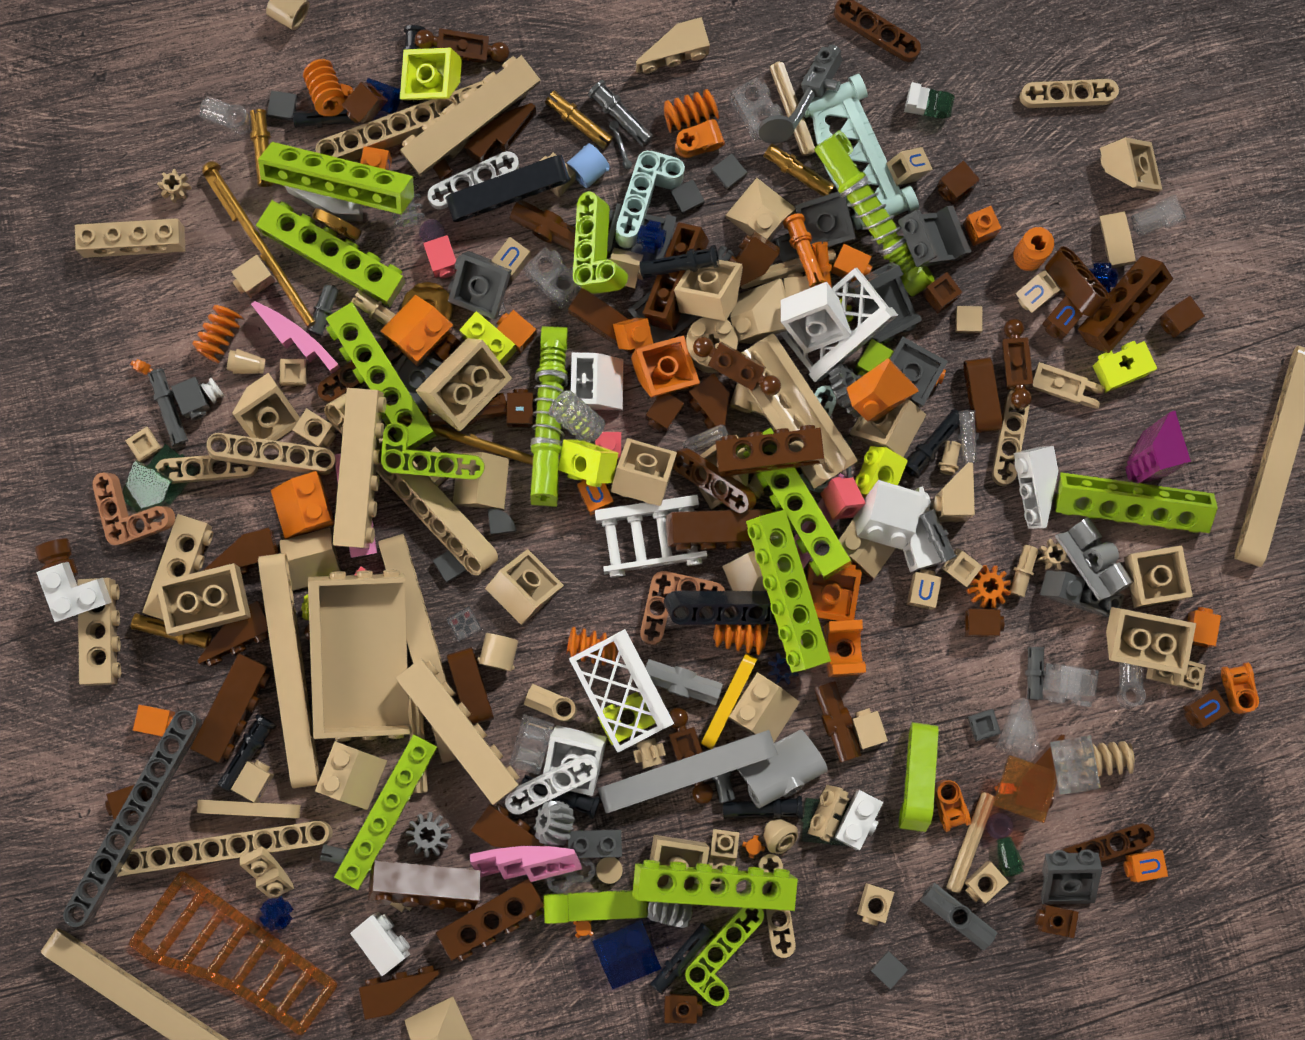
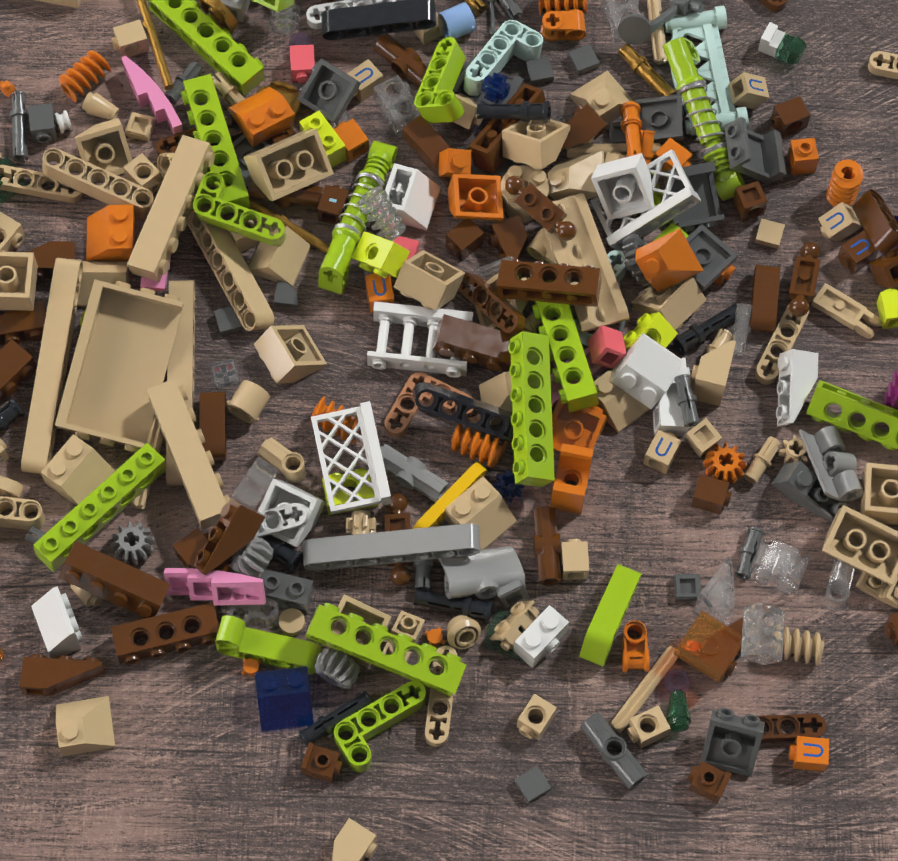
camera: 20 degrees right, 15 degrees down
(528, 807) = (232, 532): none -> reddish brown slope
(818, 783) = (512, 593): none -> dark grey tile

